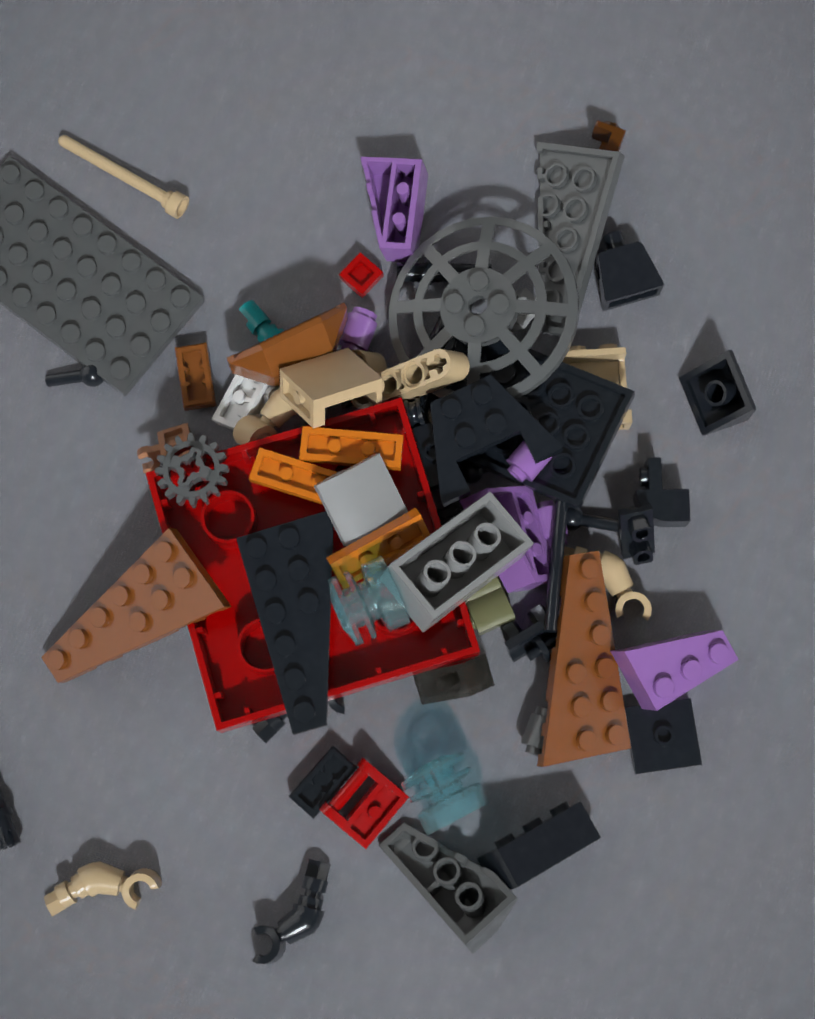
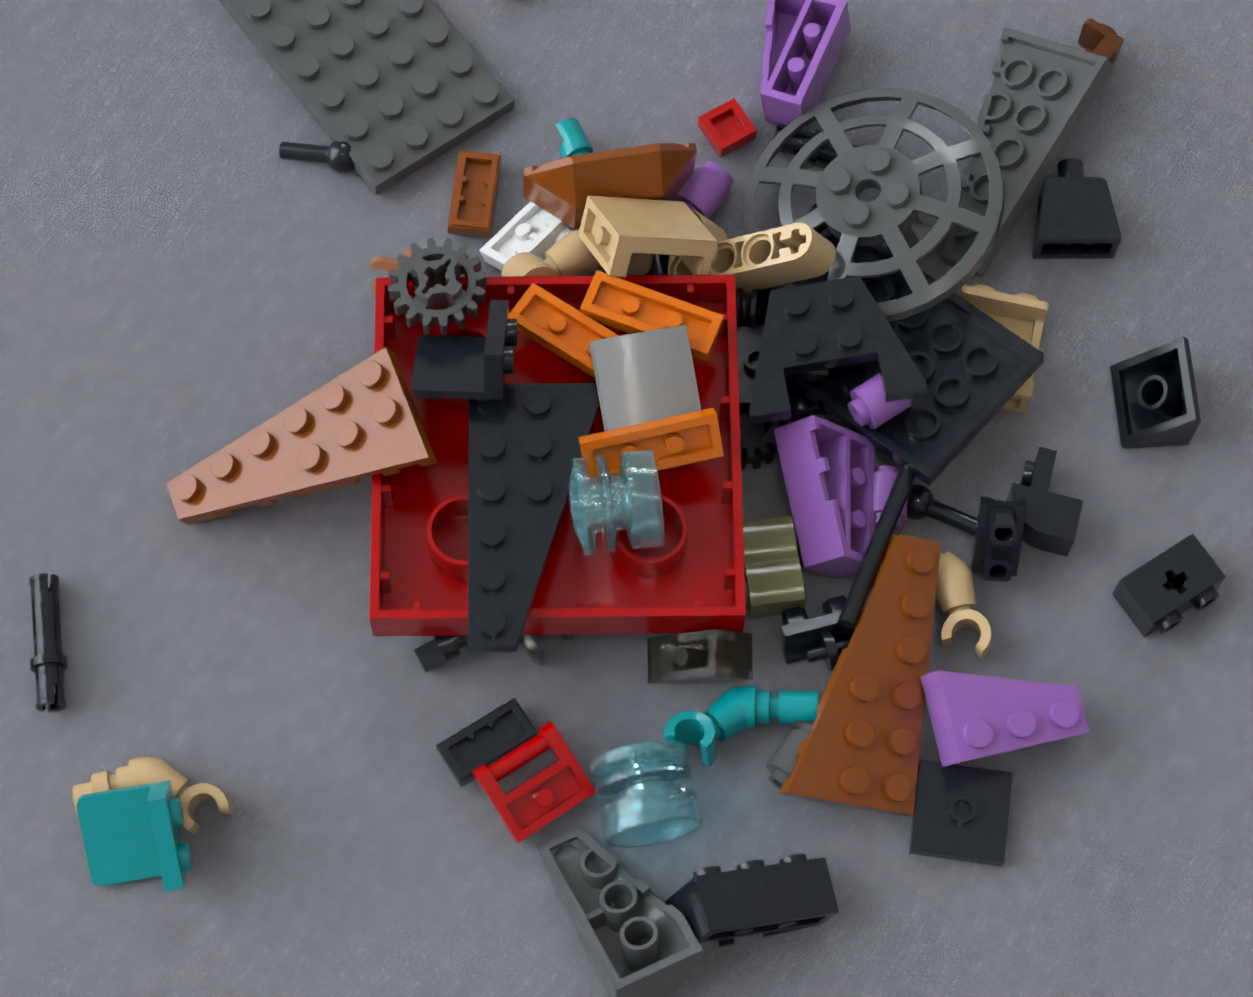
camera: 10 degrees right, 10 degrees down
(99, 924) = (135, 835): none -> teal bracket
(229, 525) = (467, 364): none -> black bracket
(302, 919) = (402, 911): black piece -> none
(458, 560) = (750, 487): light grey brick -> none
(487, 712) = (736, 711): none -> teal piece
(769, 514) = (1180, 566): none -> black brick

